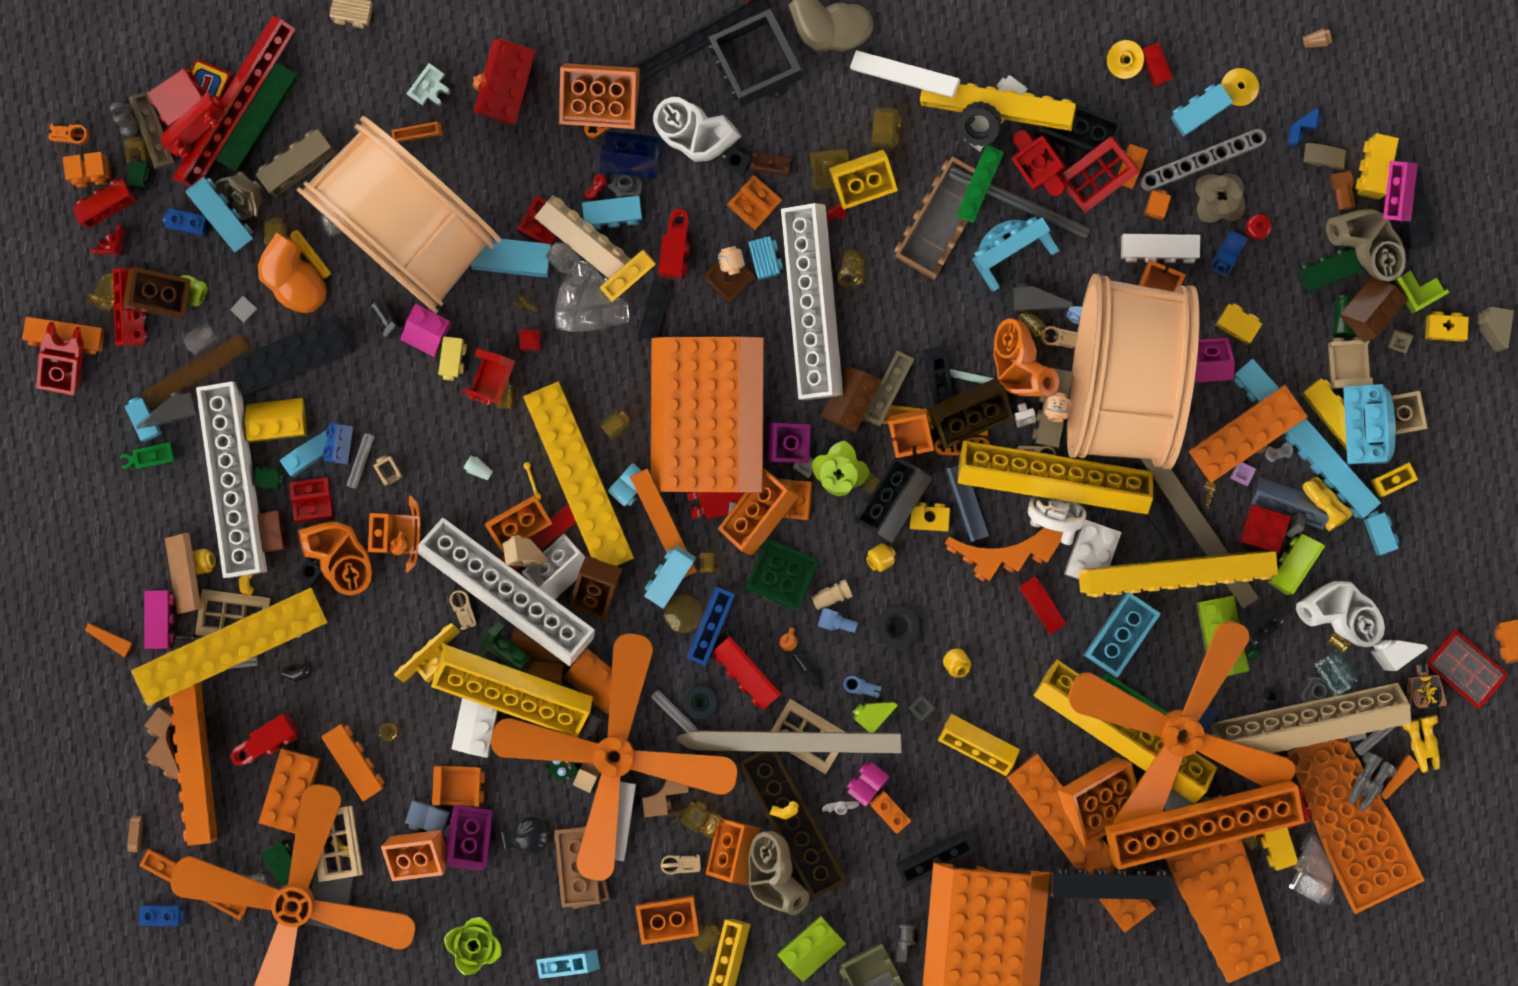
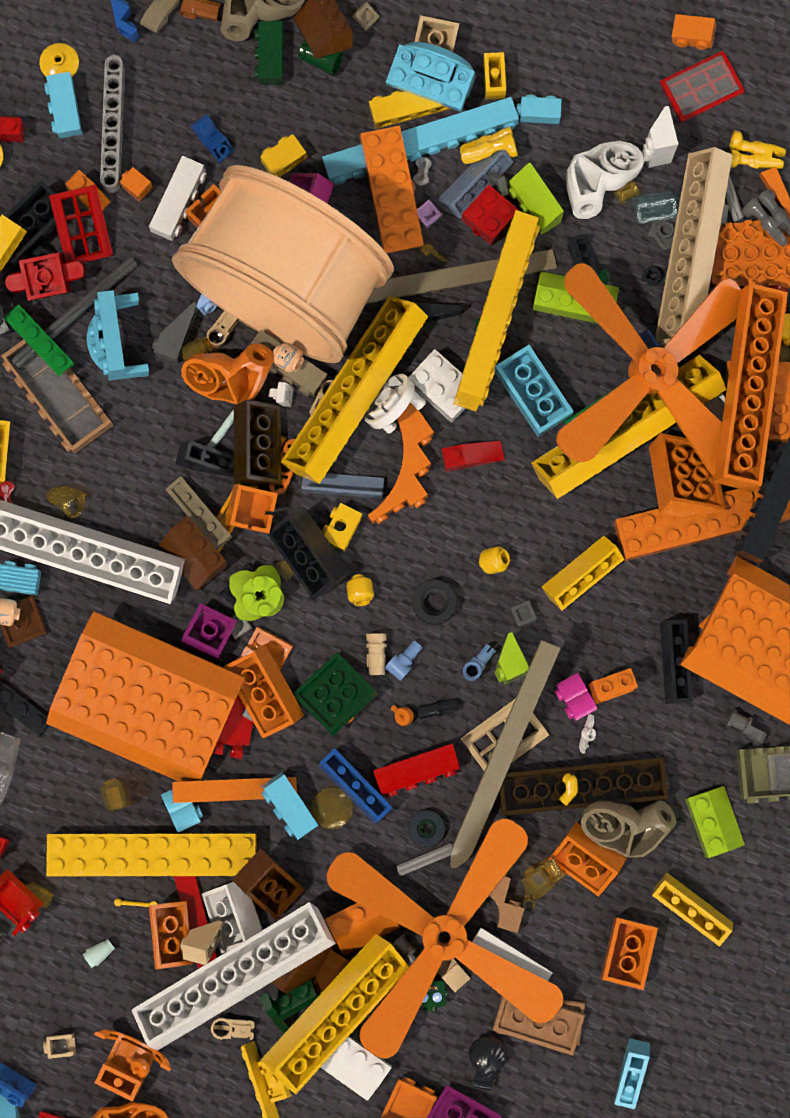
camera: 70 degrees left, 5 degrees down
(360, 461) = (39, 1070): light grey axle -> none
(685, 864) = (580, 912): tan piece -> none
(707, 563) = (291, 762): clear yellow bush -> none
(707, 938) = (664, 921): clear yellow brick -> none
(1212, 209) = (161, 135): dark tan brick -> none
(1258, 227) = (199, 99): red head -> none
(1349, 363) = (365, 71): tan panel -> none
(1425, 689) = (705, 131): torso -> none

